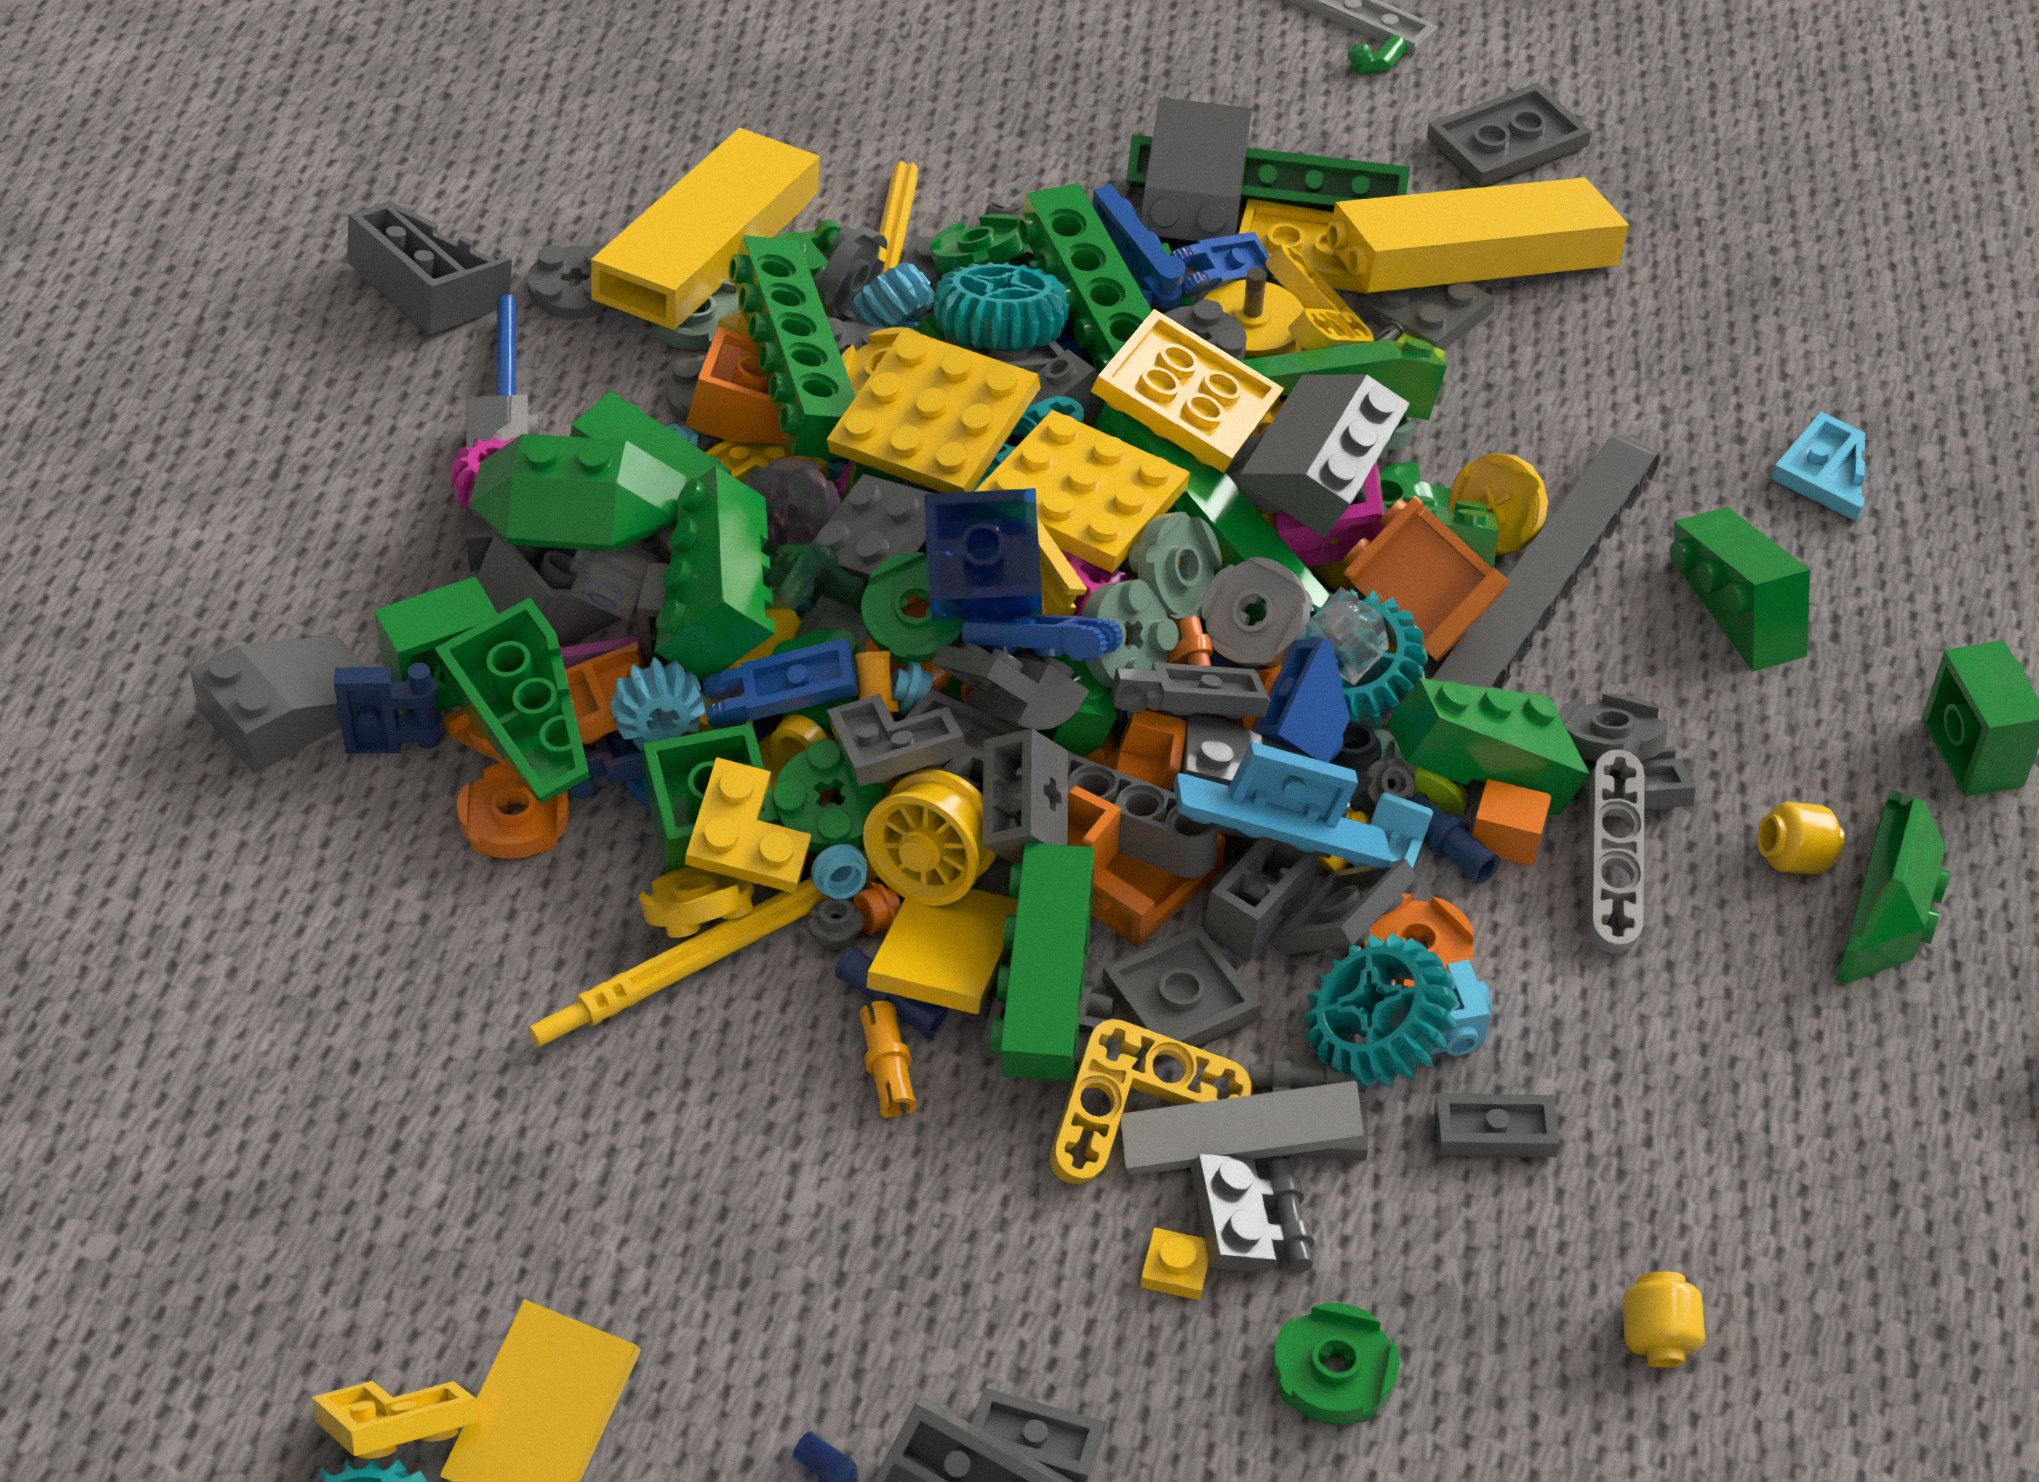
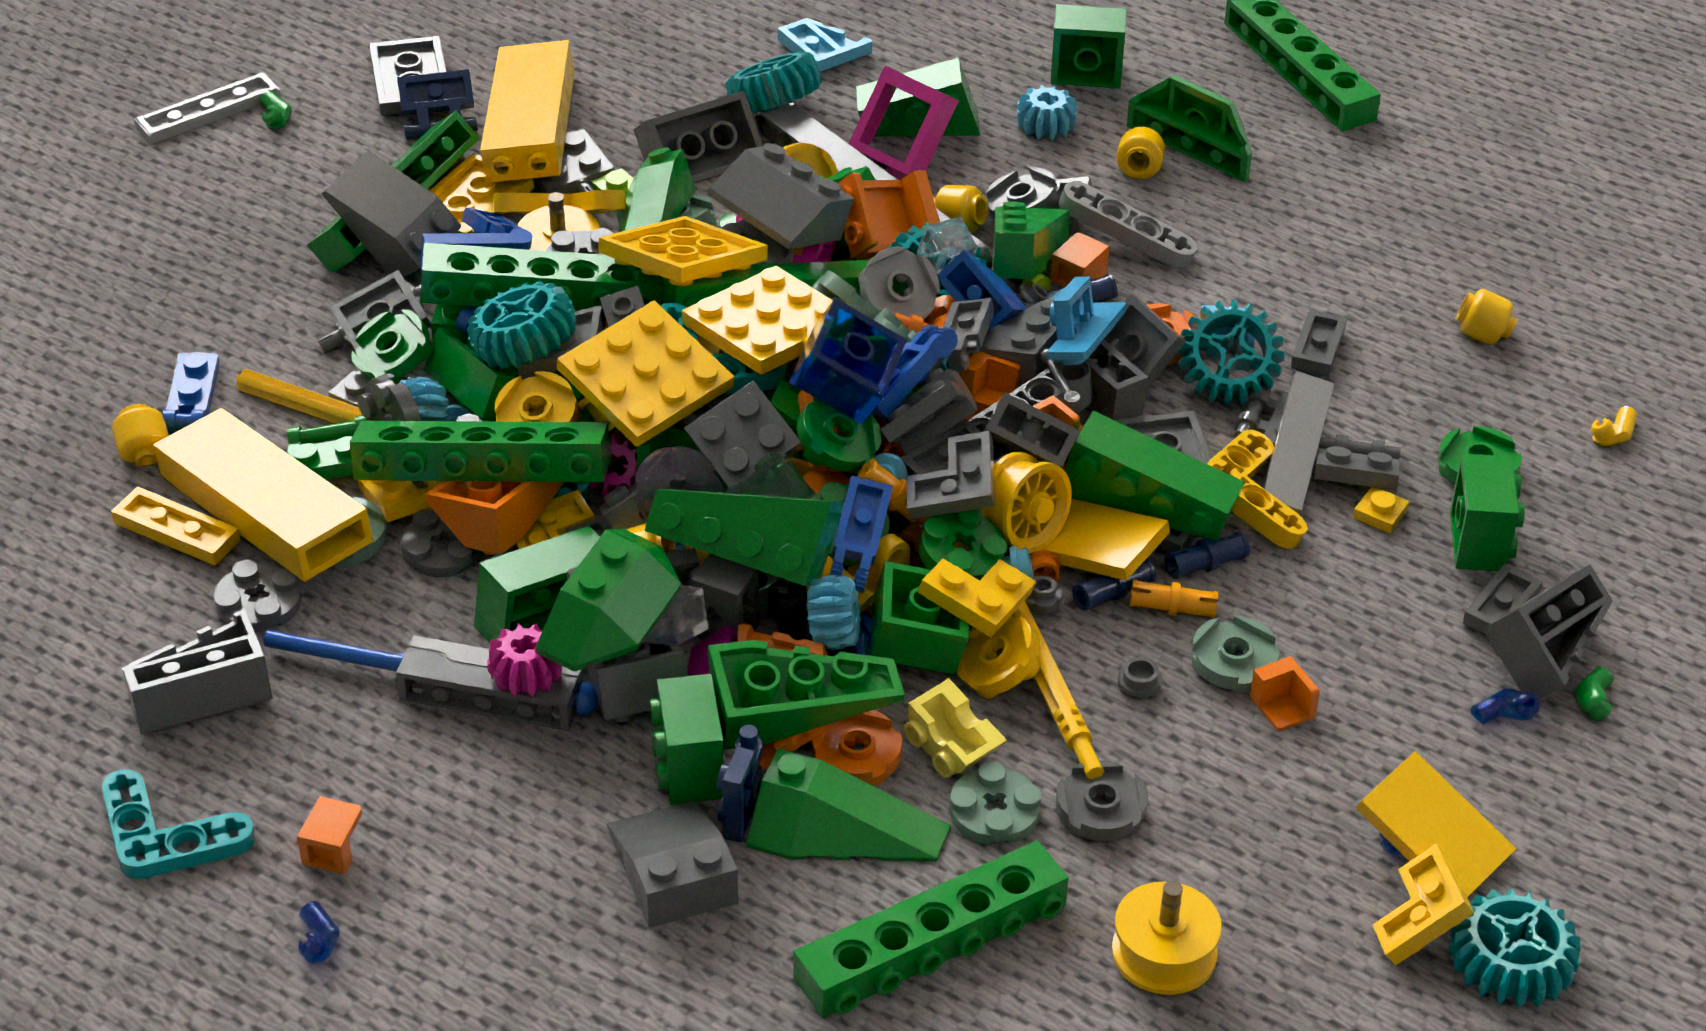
camera: 70 degrees left, 5 degrees down
(119, 468) = (322, 936): none -> clear blue arm
(210, 315) = (148, 839): none -> teal beam
(236, 416) = (327, 833): none -> orange panel
(239, 940) = (930, 929): none -> green brick
(270, 1157) = (1166, 938): none -> yellow wheel
(390, 819) = (825, 812): none -> green wedge
(455, 933) = (992, 783): none -> sand green plate
(496, 1086) = (1102, 822): none -> dark grey plate
(560, 884) = (949, 730): none -> light yellow cylinder
(655, 172) = (176, 526): none -> yellow plate
(730, 1055) = (1140, 678): none -> dark grey plate
(754, 1212) = (1284, 693): none -> orange panel
(773, 116) = (136, 432): none -> yellow head
(815, 1174) = (1227, 670): none -> sand green plate
(867, 141) = (191, 389): none -> plate
(986, 1079) = (1207, 555): none -> dark blue pin
(1126, 829) = (1071, 398): none -> dark grey hinge
(1176, 1365) = (1485, 512): none -> green brick
(1460, 152) = (434, 93): none -> dark blue plate
(1535, 404) = (708, 133): none -> dark grey slope
(1553, 669) = (964, 202): none -> yellow head
(1680, 428) = (776, 80): none -> teal gear
(1681, 527) = (929, 134): none -> dark pink window
(1827, 719) = (1046, 112): none -> medium azure gear

